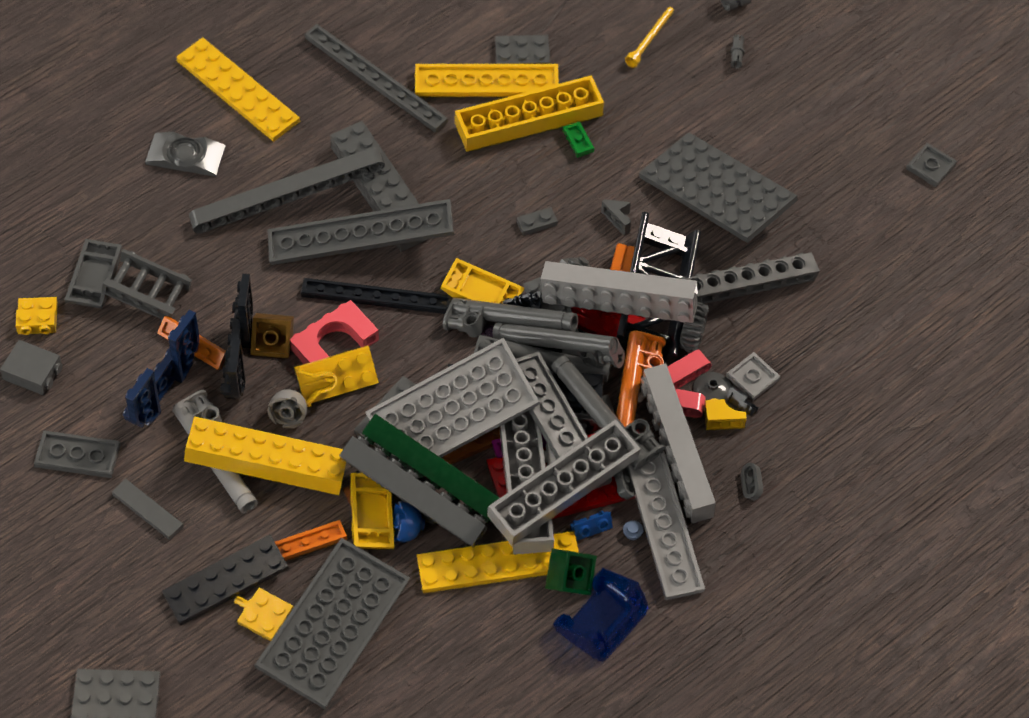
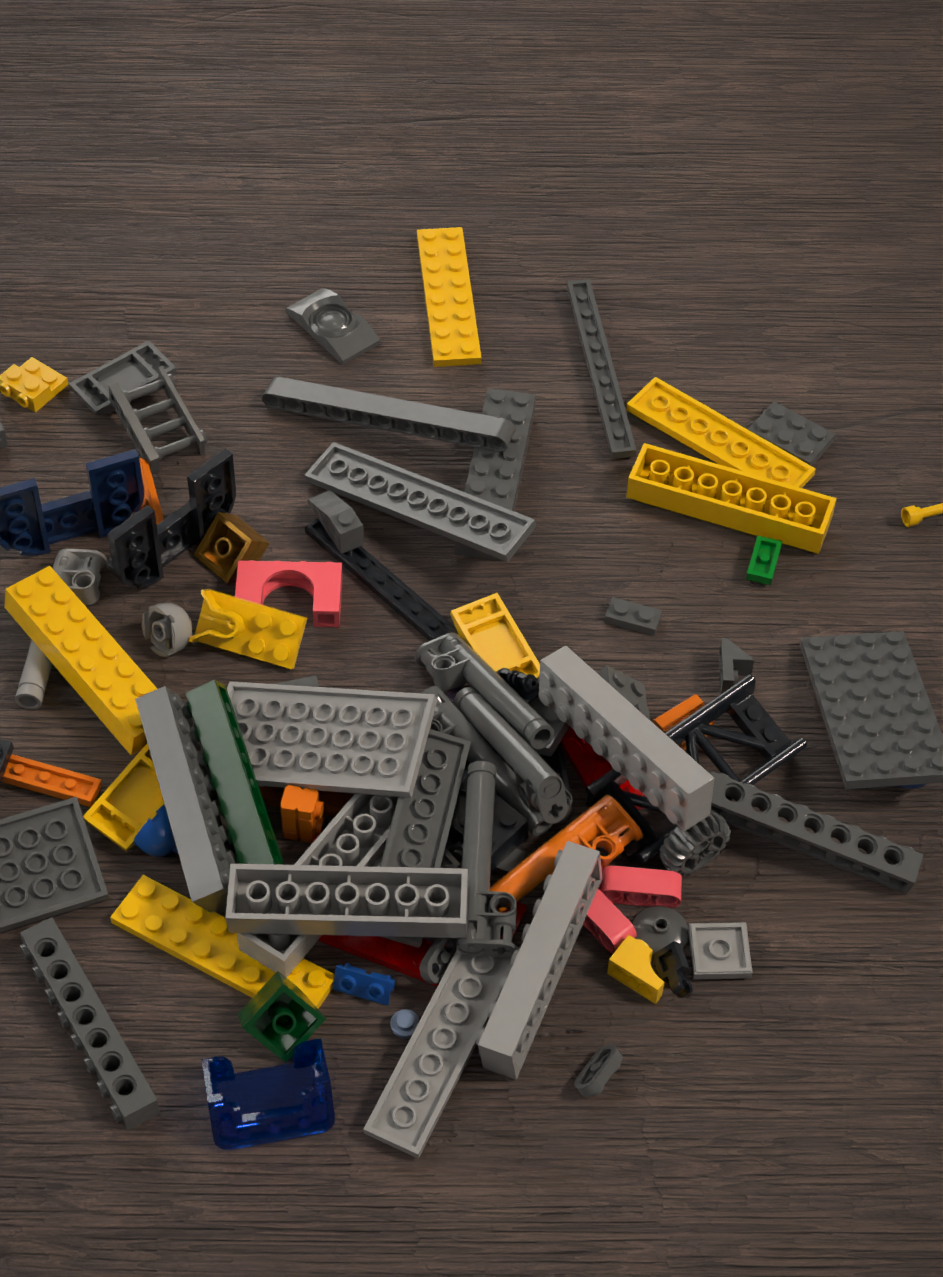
camera: 40 degrees right, 5 degrees down
(320, 275) = (338, 520): none -> dark grey slope
(463, 642) = (141, 1102): none -> dark grey brick
(474, 458) = (301, 814): none -> orange brick

